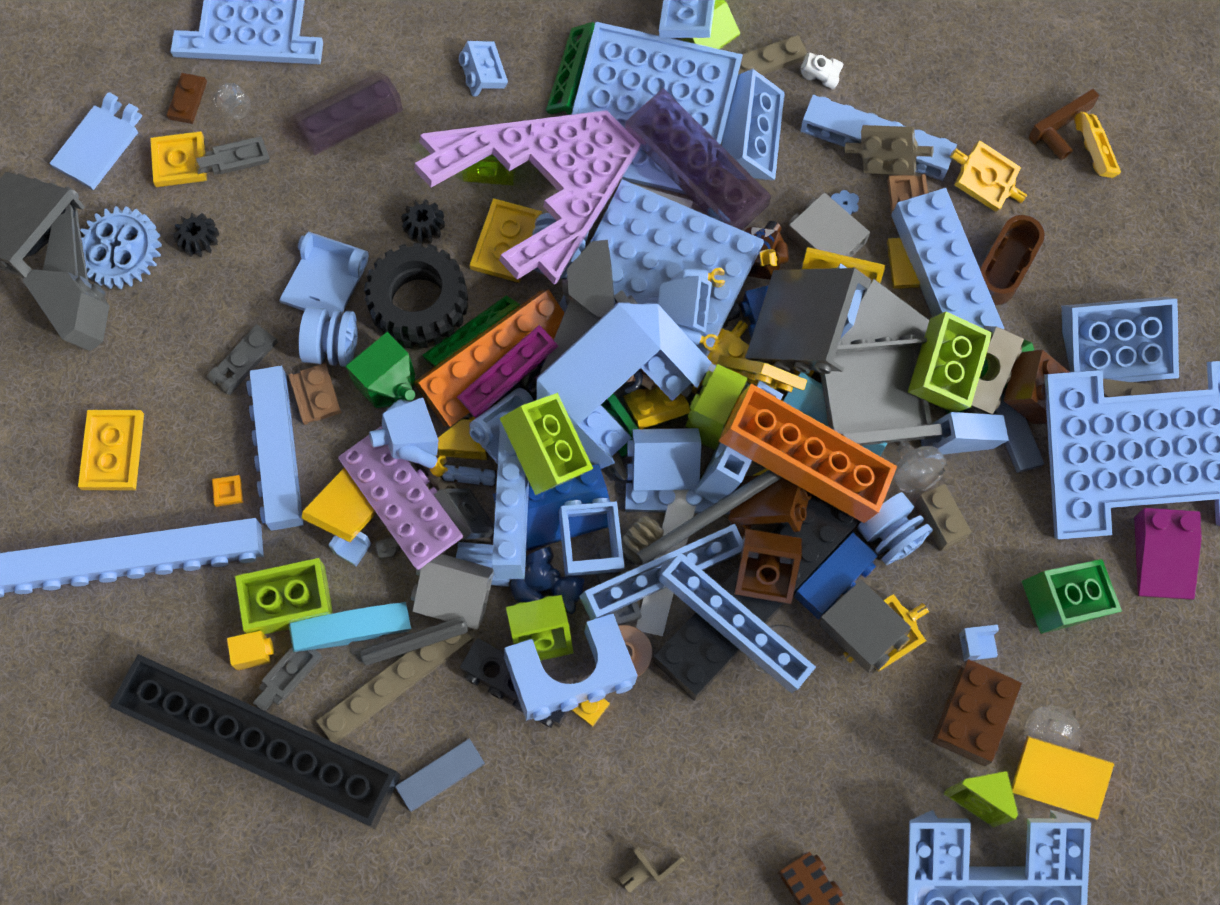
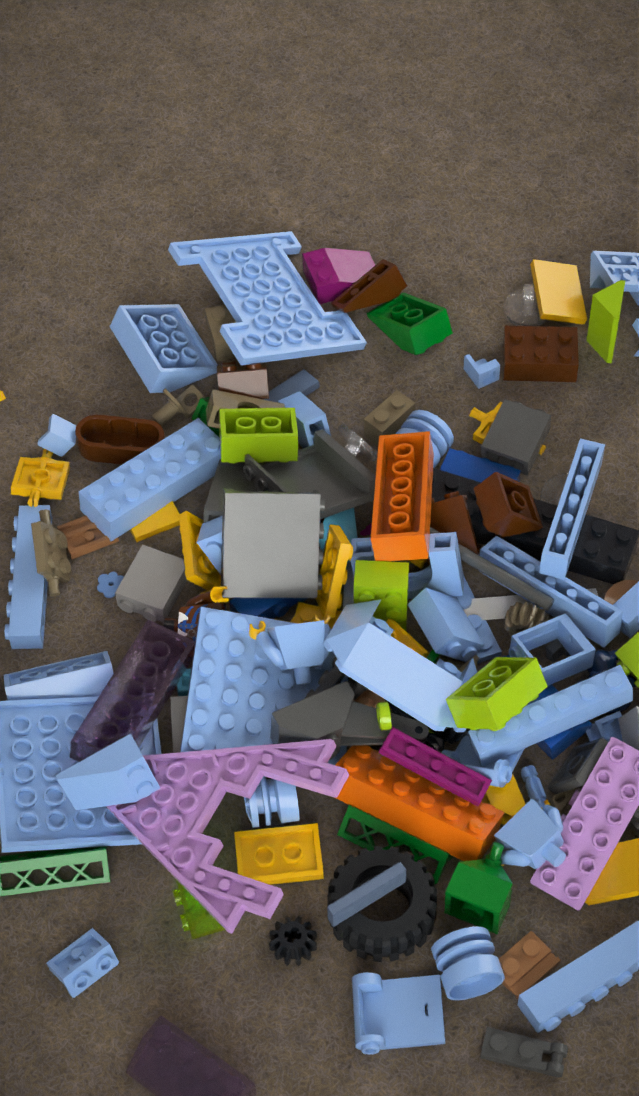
camera: 110 degrees left, 15 degrees down
(412, 265) = (366, 894): none -> sand blue tile
(566, 336) = (383, 716): none -> lime tile
(614, 111) = (109, 777): none -> light blue slope
(1033, 202) = (59, 437): none -> light blue panel
(1037, 324) = (176, 405): none -> dark tan bracket
(1128, 570) = (375, 287): none -> reddish brown slope

